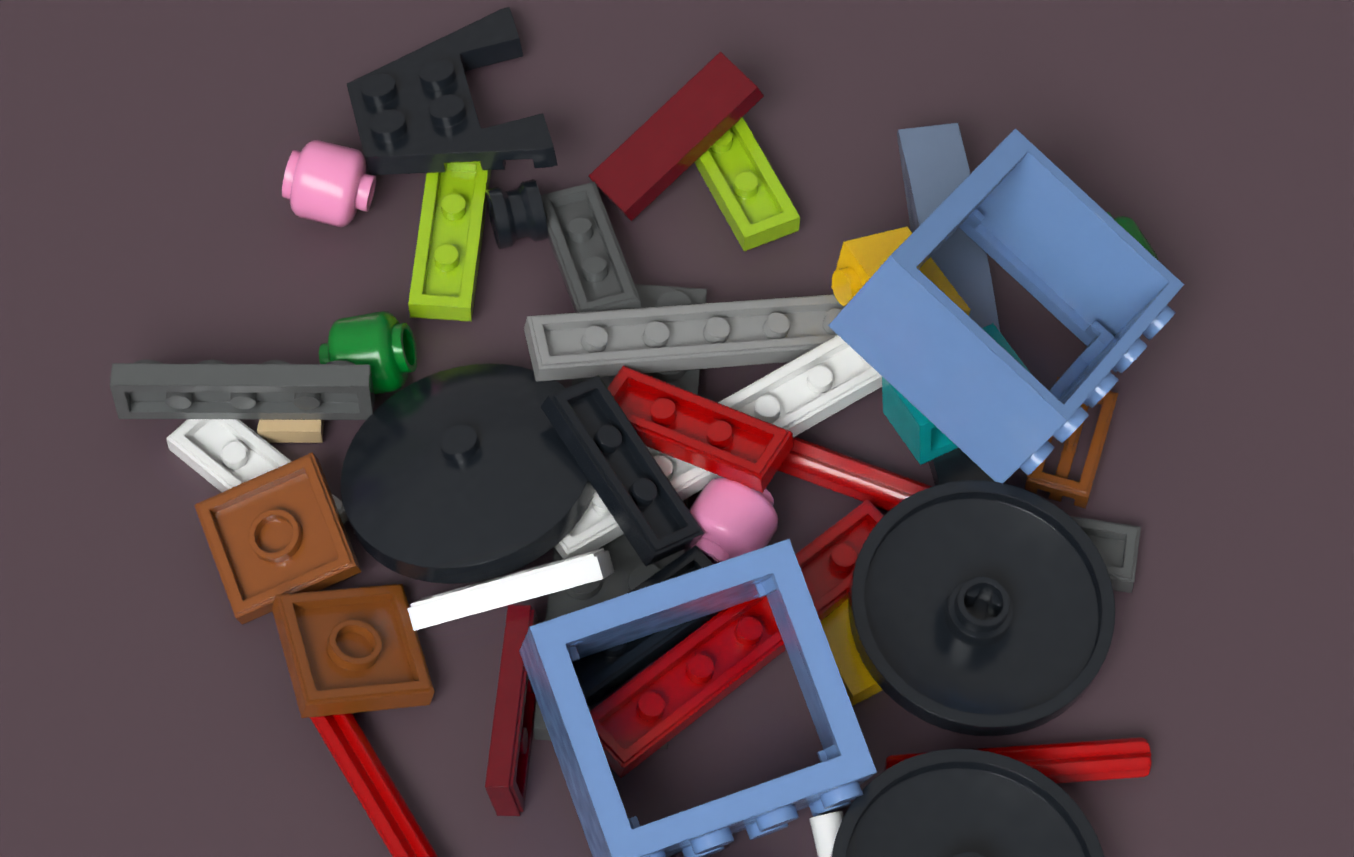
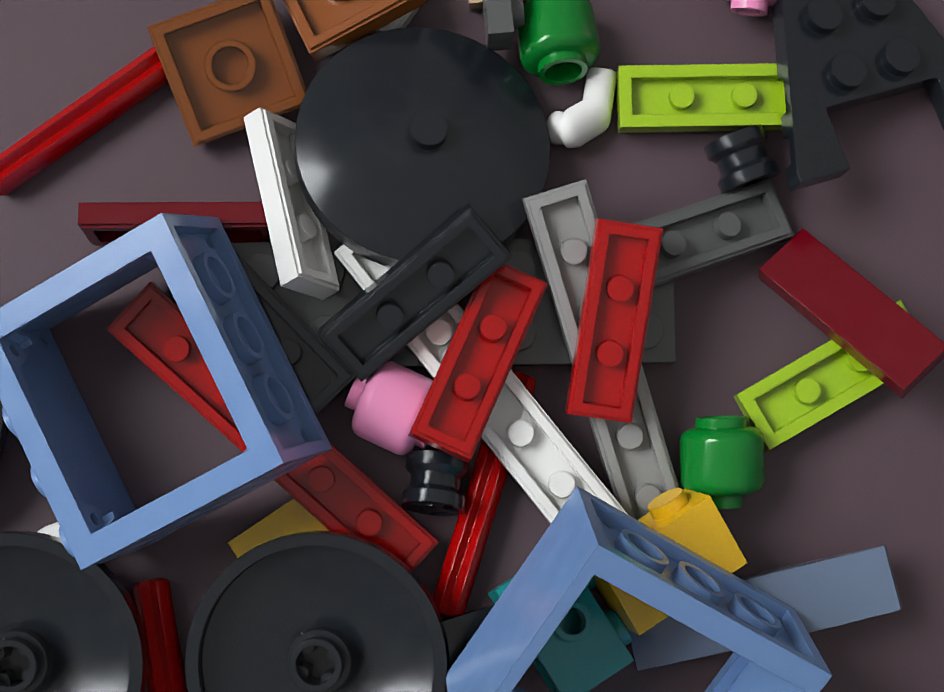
camera: 80 degrees right, 25 degrees up
(446, 337) = (588, 117): none -> white arm
(667, 310) = (614, 320): none -> red tile
(802, 254) = (722, 459): none -> green head
(808, 496) = (435, 483): none -> black wheel

